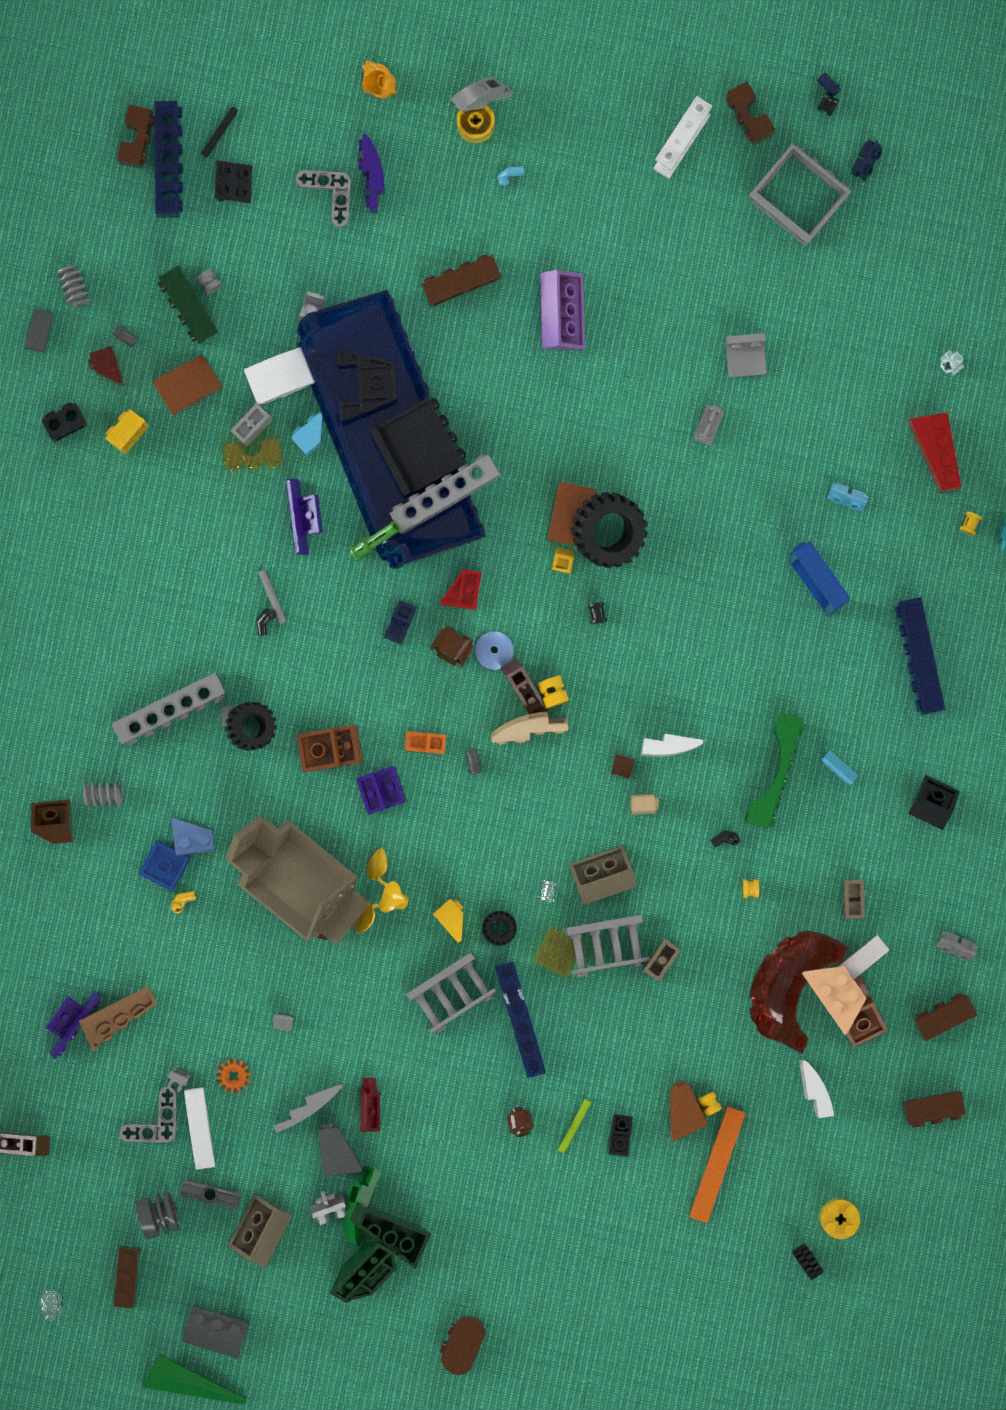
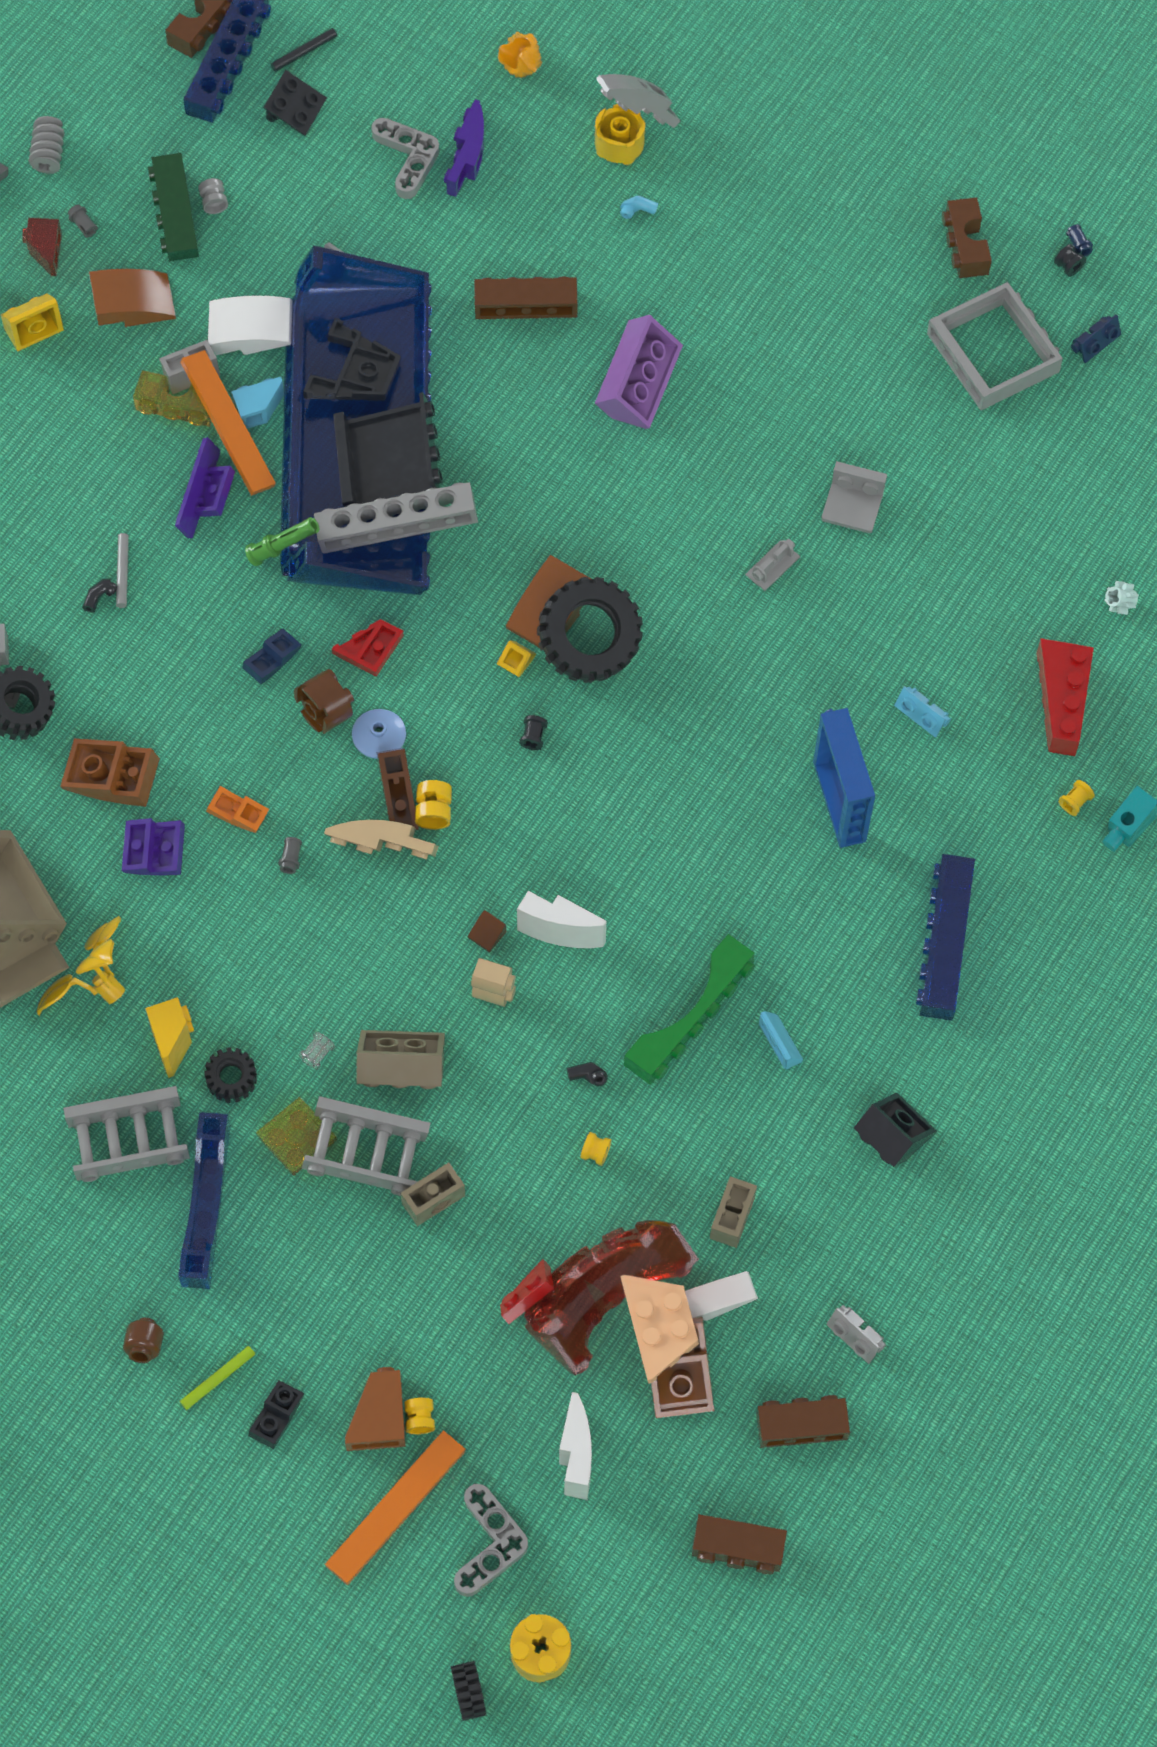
camera: 20 degrees right, 20 degrees down
(298, 462) = (228, 422): none -> orange tile
(682, 137) = (870, 228): white fence -> none
(746, 1000) = (528, 1292): none -> red wing
(788, 1158) = (499, 1536): none -> light grey beam

